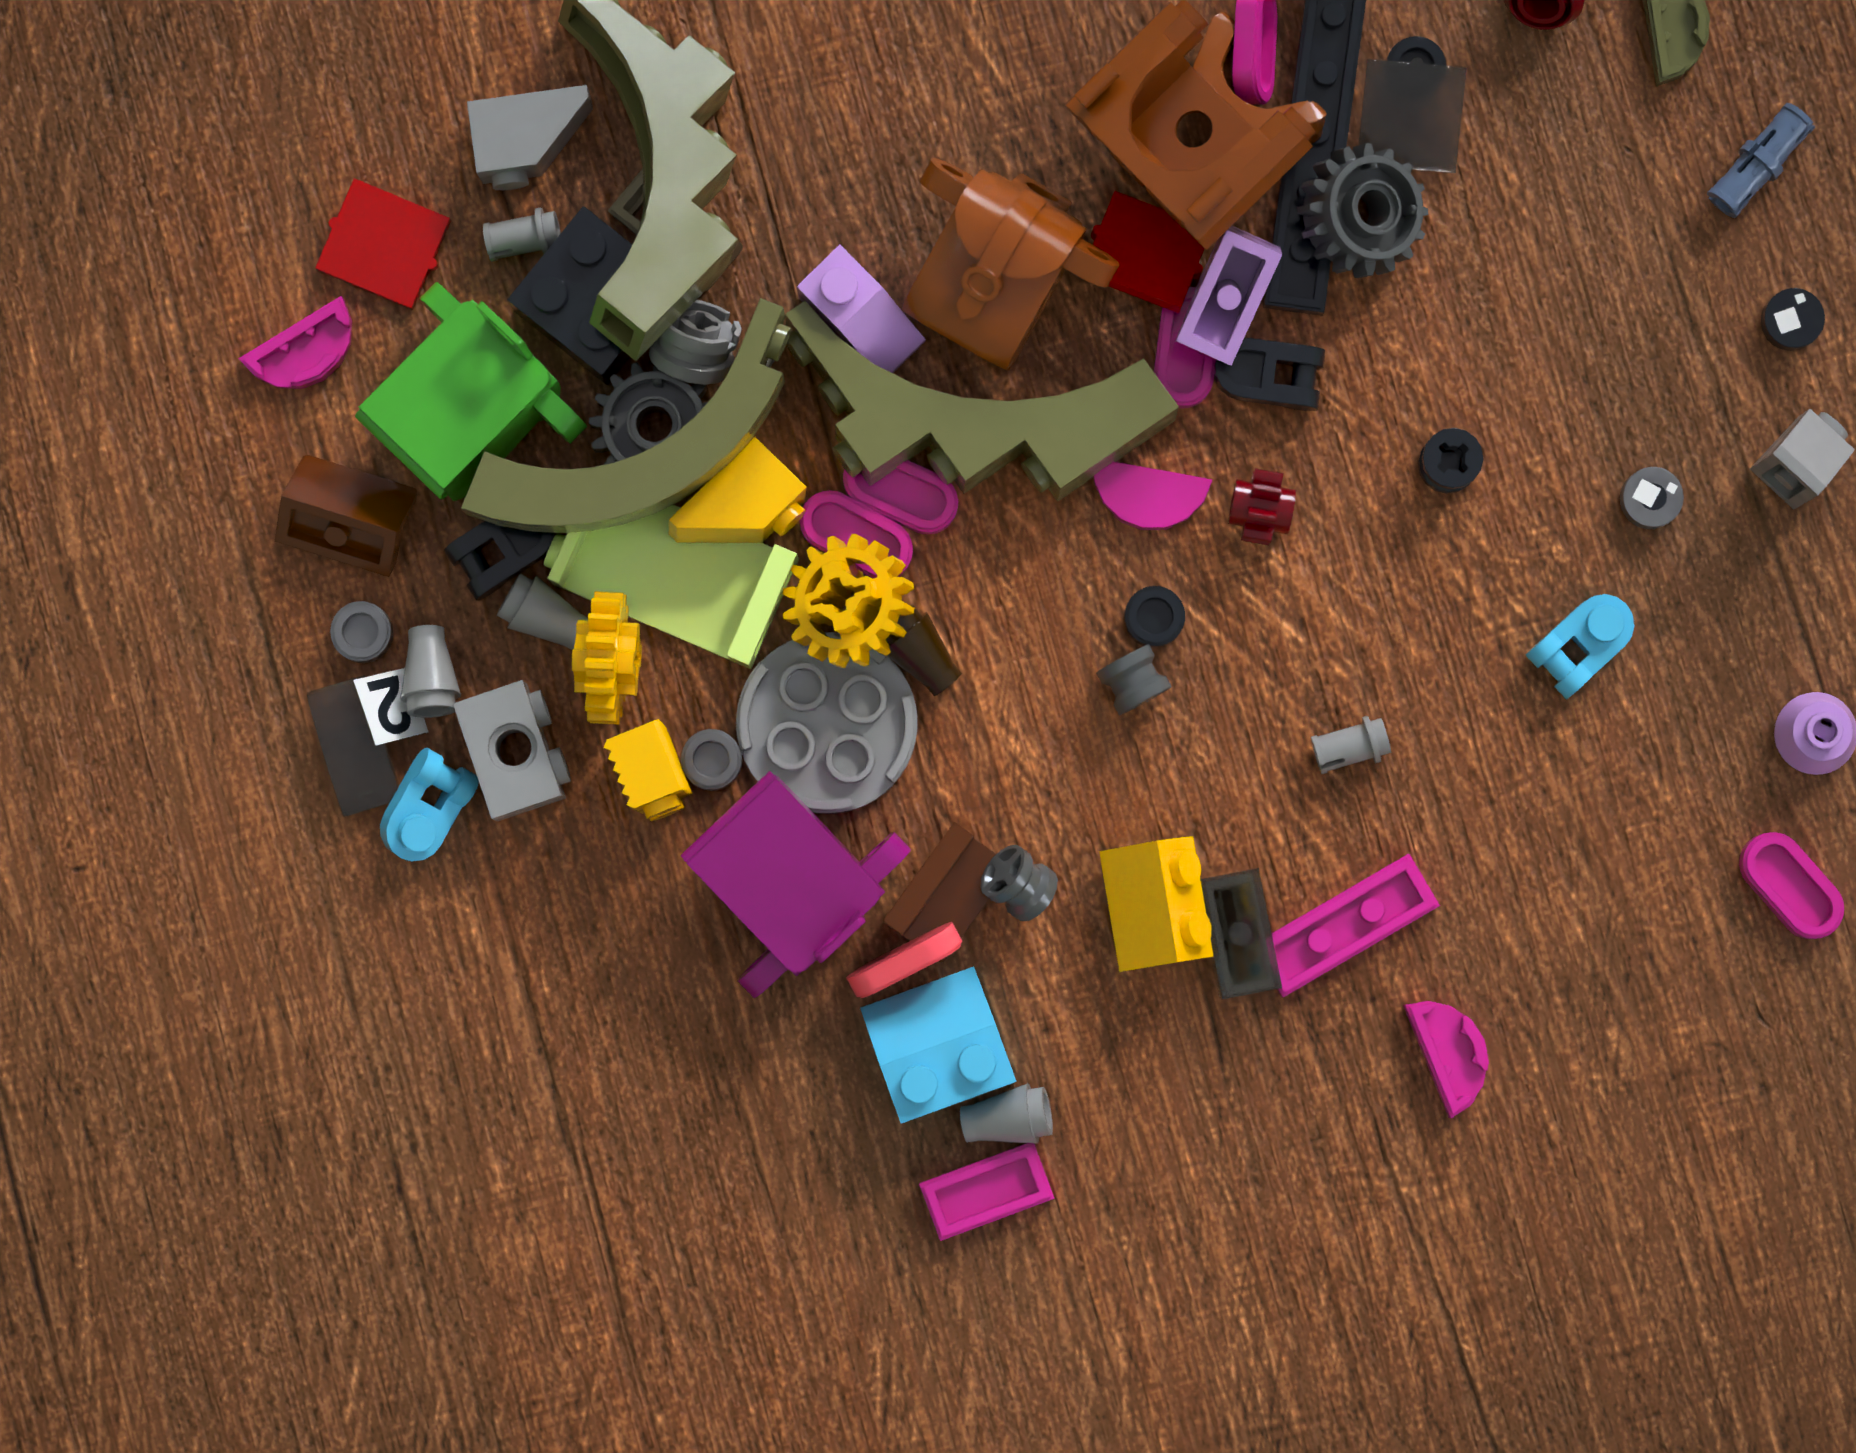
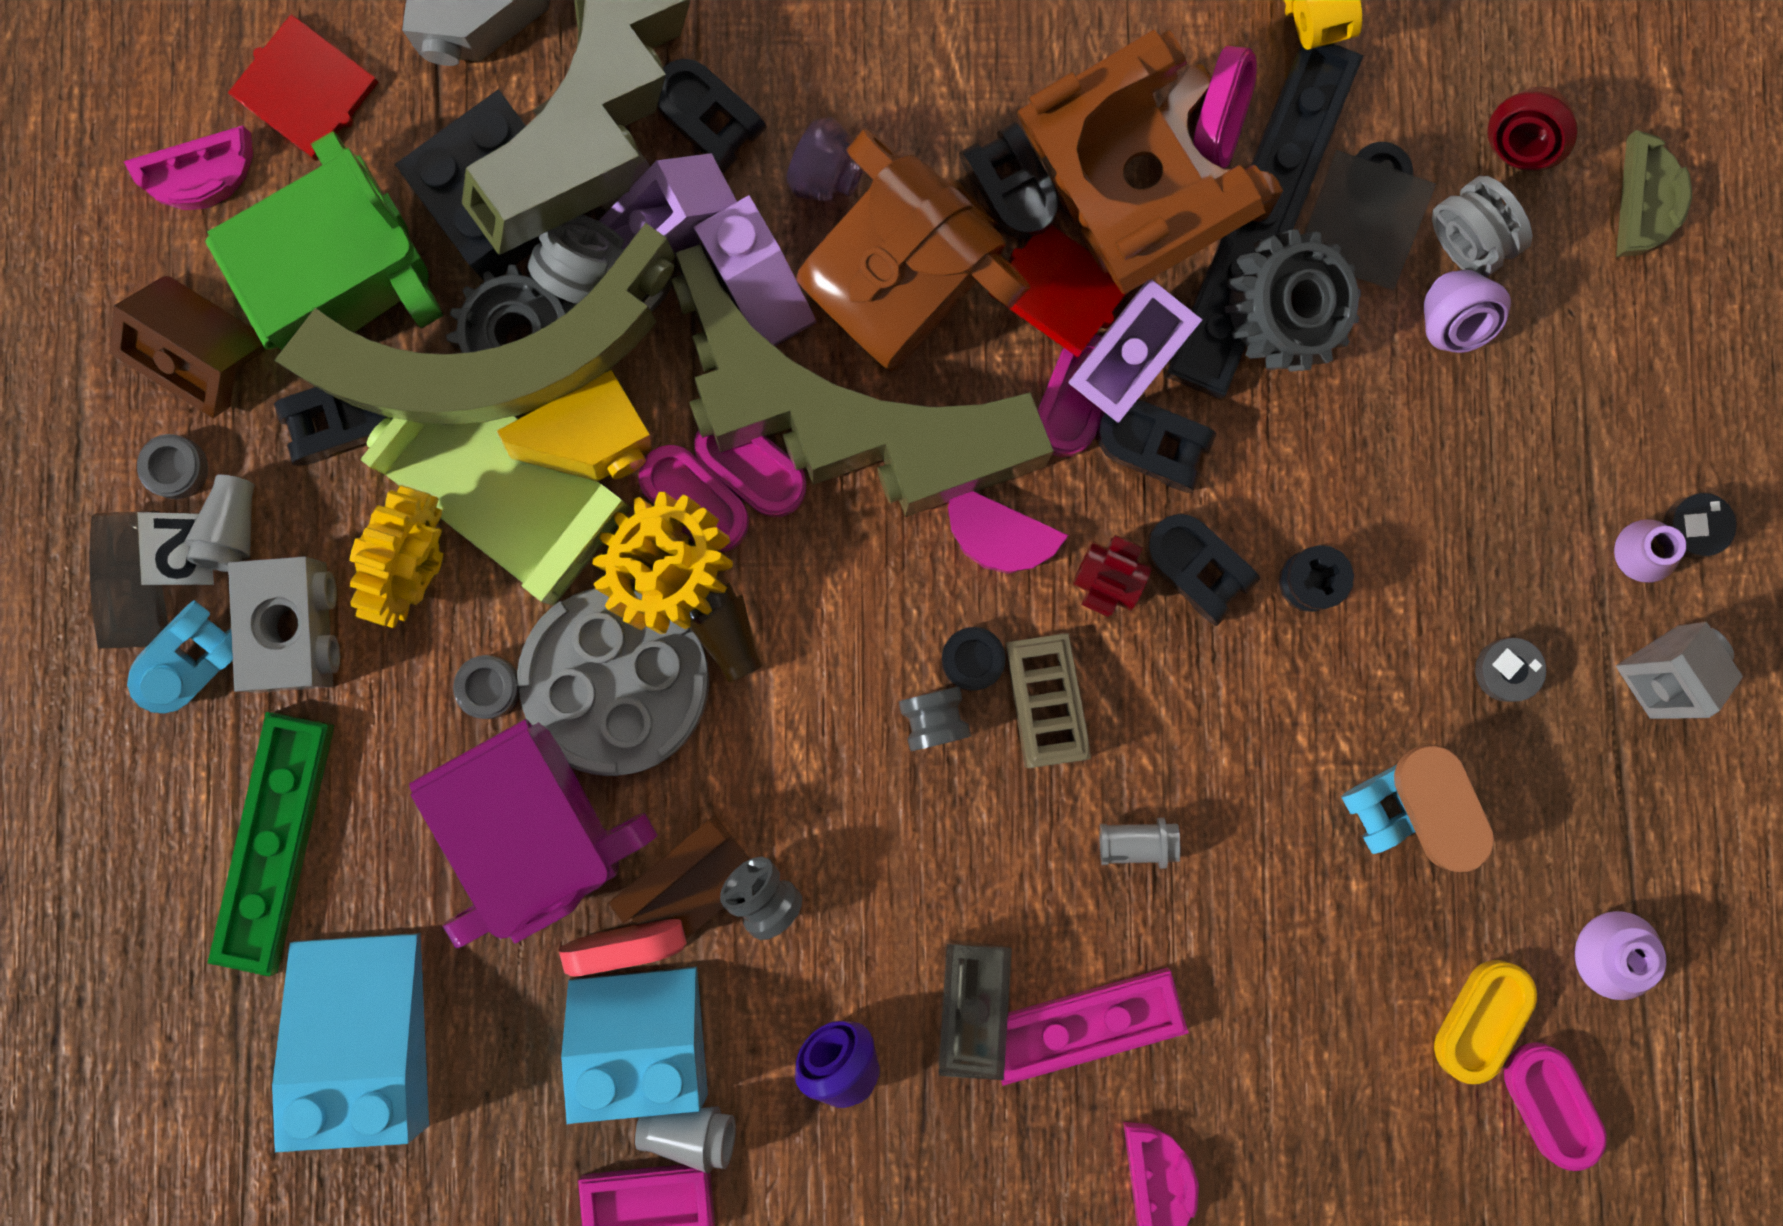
camera: 15 degrees right, 0 degrees up
(521, 235) = (431, 109): light grey pin -> none
(540, 612) = (346, 488): light grey cone -> none
(551, 954) = (271, 844): none -> green tile
(649, 770) = (407, 683): yellow brick -> none
(679, 1110) = (351, 1045): none -> medium azure slope
(757, 164) = (692, 97): none -> black plate
(766, 268) = (672, 200): none -> lavender slope
(896, 192) = (821, 163): none -> clear purple cone
(1091, 179) = (1023, 201): none -> black plate
(1129, 1015) = (838, 1064): none -> dark purple cone
(1156, 903) = (896, 959): yellow brick -> none
(1253, 682) = (1058, 753): none -> dark tan slope
(1319, 466) = (1182, 548): none -> black plate
(1519, 96) = (1479, 228): none -> light grey wheel
(1523, 178) = (1464, 311): none -> lavender cone
(1616, 639) = (1443, 808): none -> nougat tile
(1709, 825) = (1485, 1021): none -> yellow tile
(1754, 372) = (1635, 554): none -> lavender cone
(1761, 160) = (1708, 356): sand blue pin -> none

